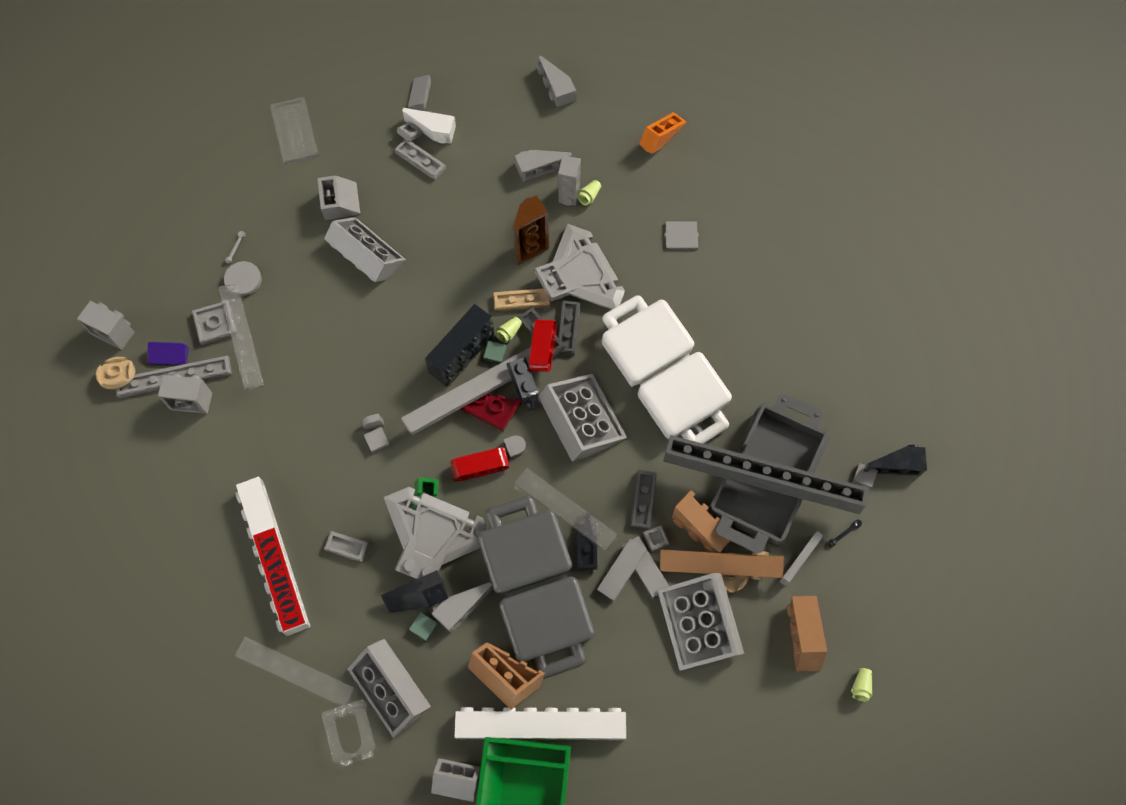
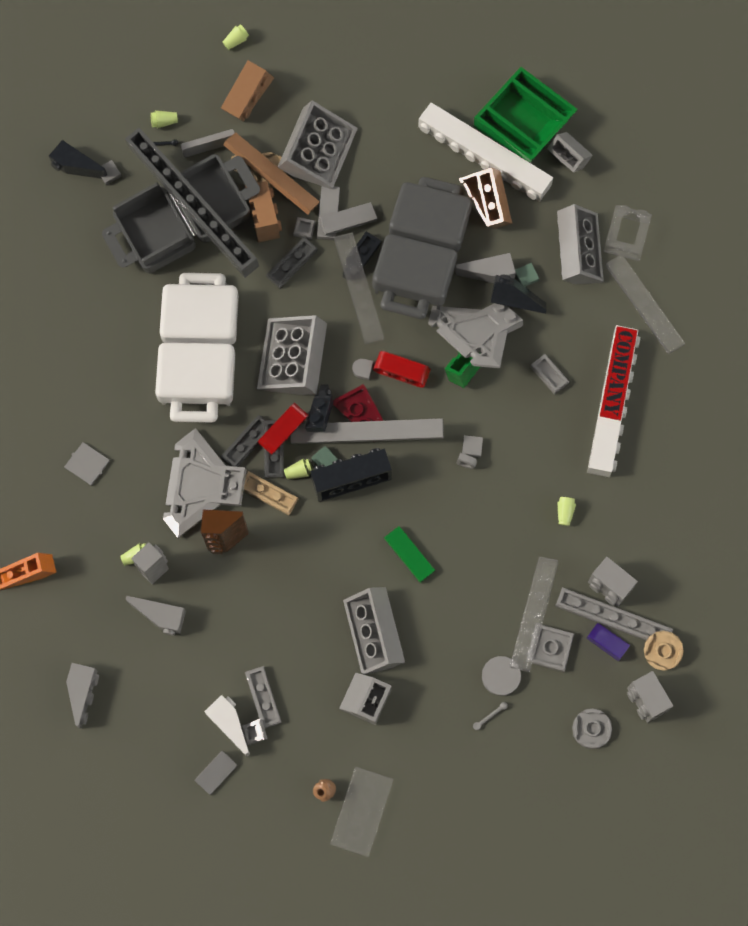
camera: 145 degrees left, 5 degrees up
(146, 285) = (592, 728): none -> light grey tile
(262, 436) = (565, 510): none -> yellowish green cone
(330, 124) = (324, 790): none -> medium nougat piece
(374, 322) = (409, 554): none -> green tile
(861, 554) = (163, 118): none -> yellowish green cone

